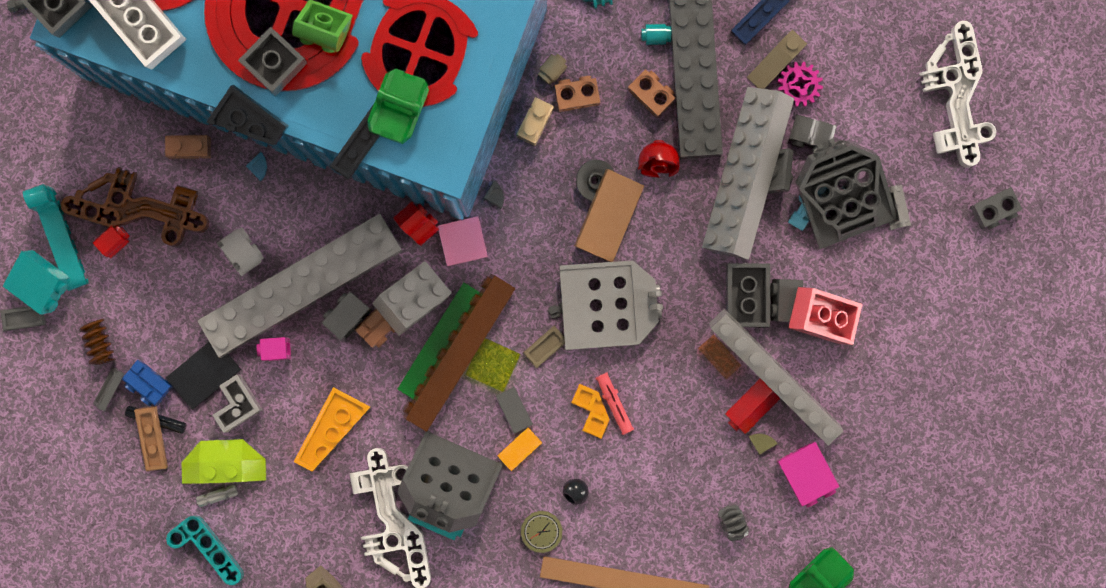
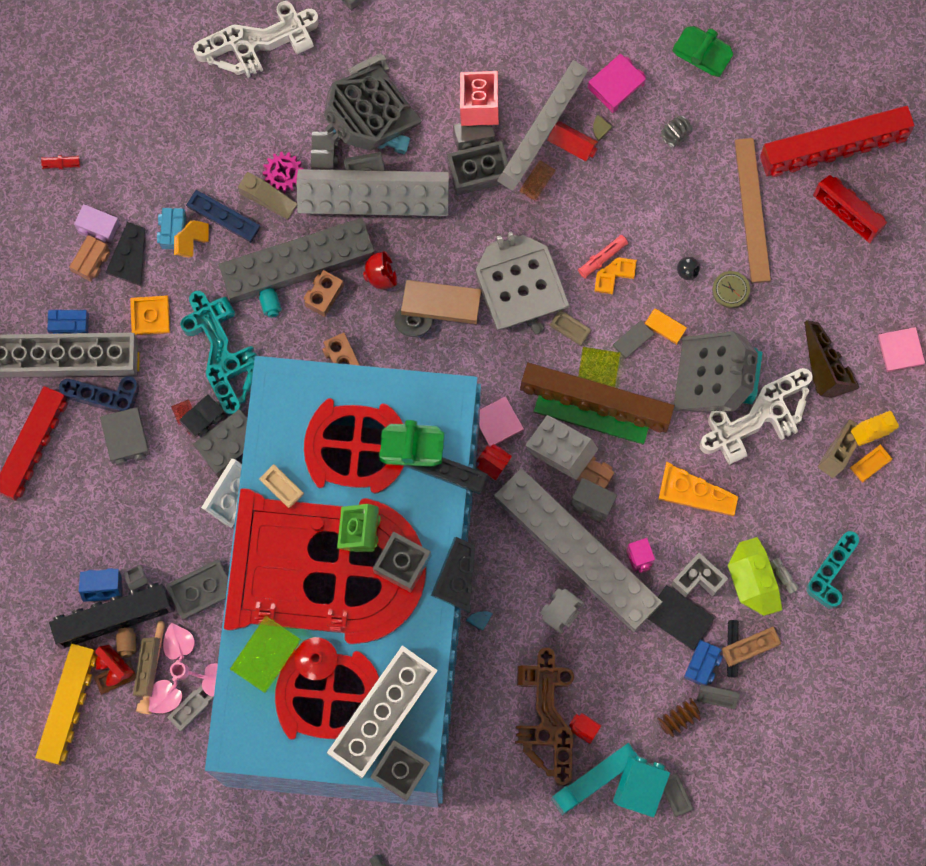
camera: 100 degrees left, 10 degrees down
(188, 147) = (480, 685): nougat brick -> none

